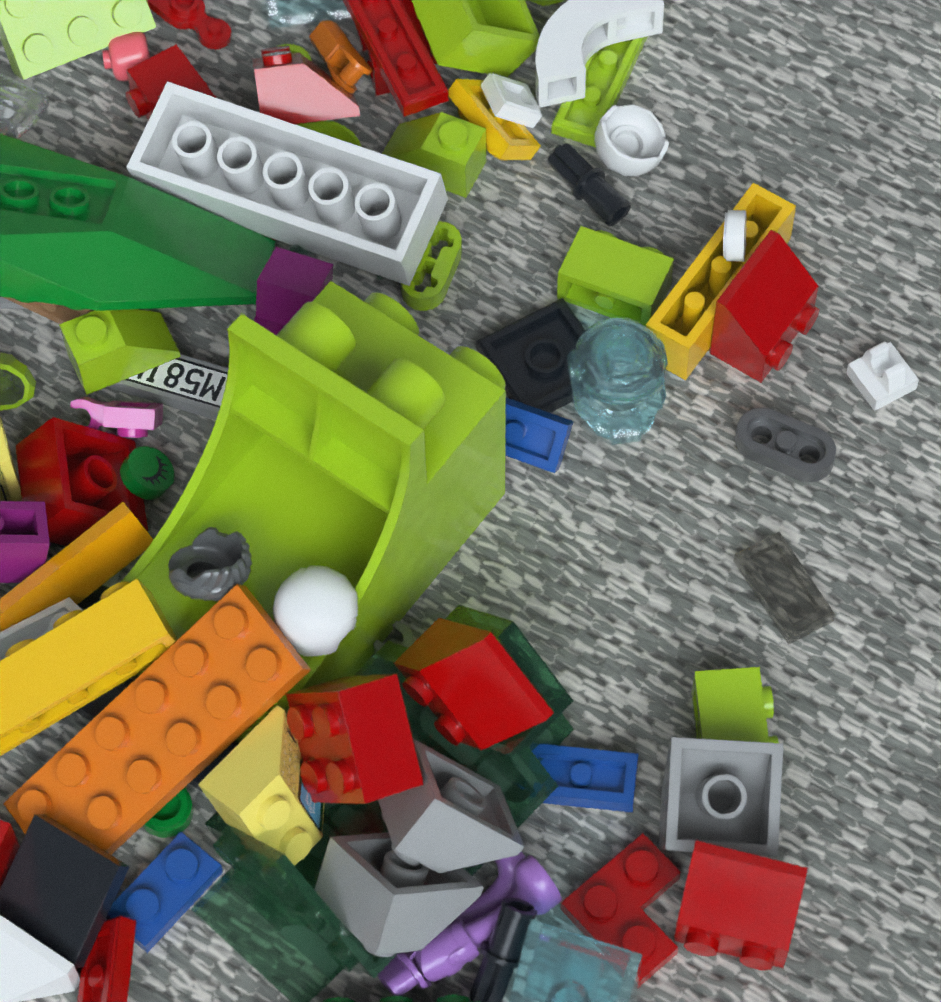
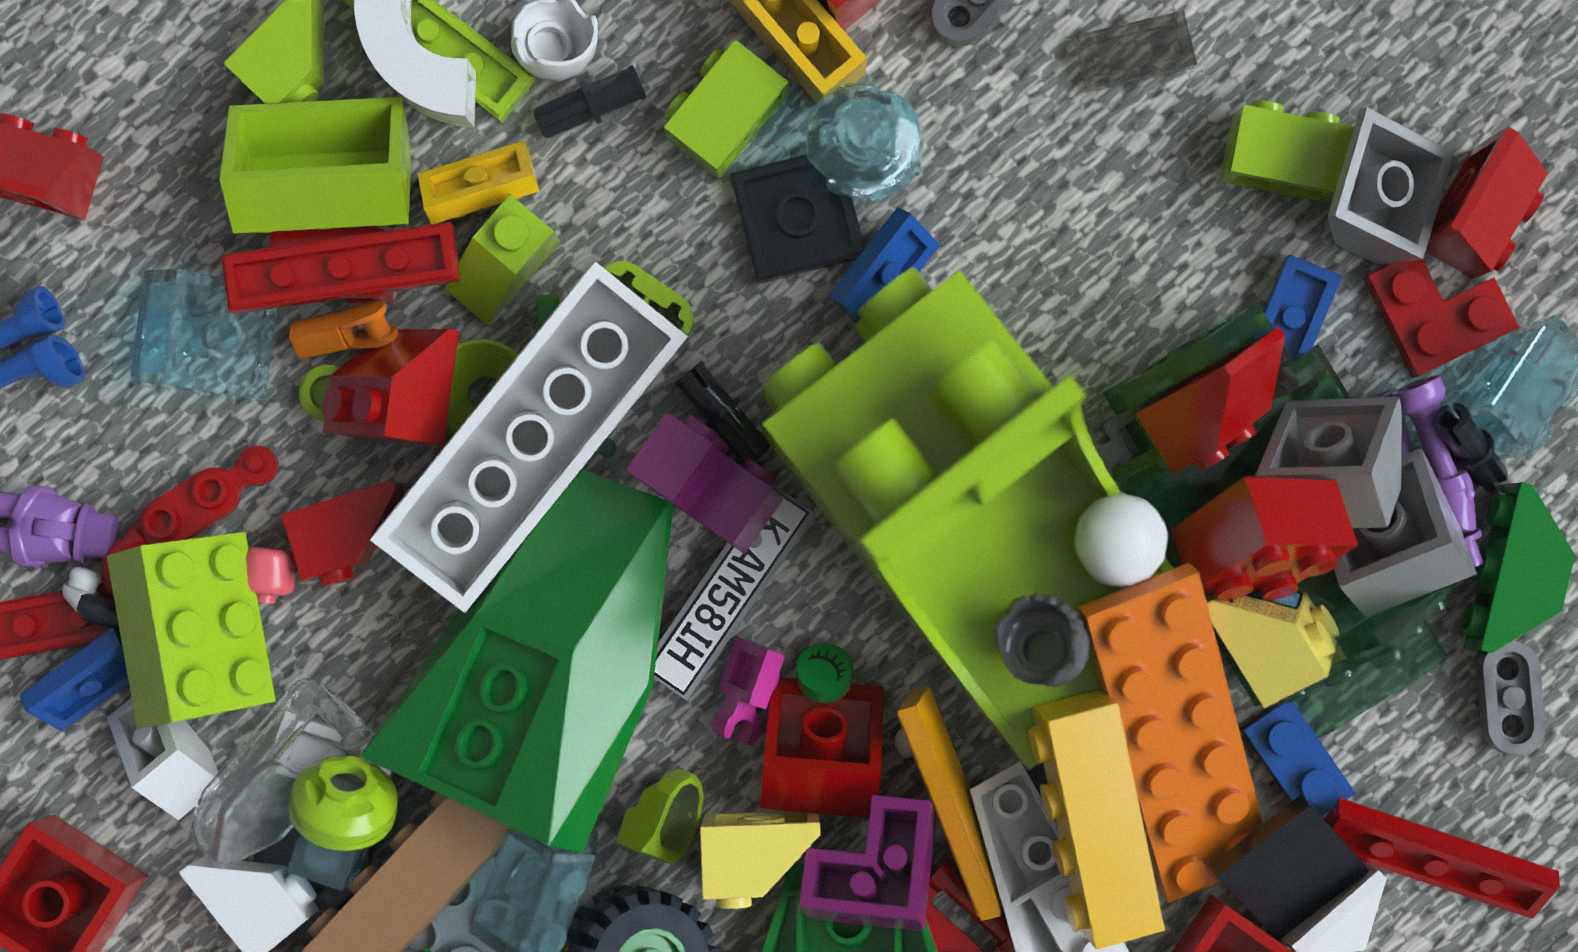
camera: 75 degrees left, 25 degrees up
(116, 345) = (677, 686): lime slope -> none
(511, 100) = (459, 155): white tile -> none

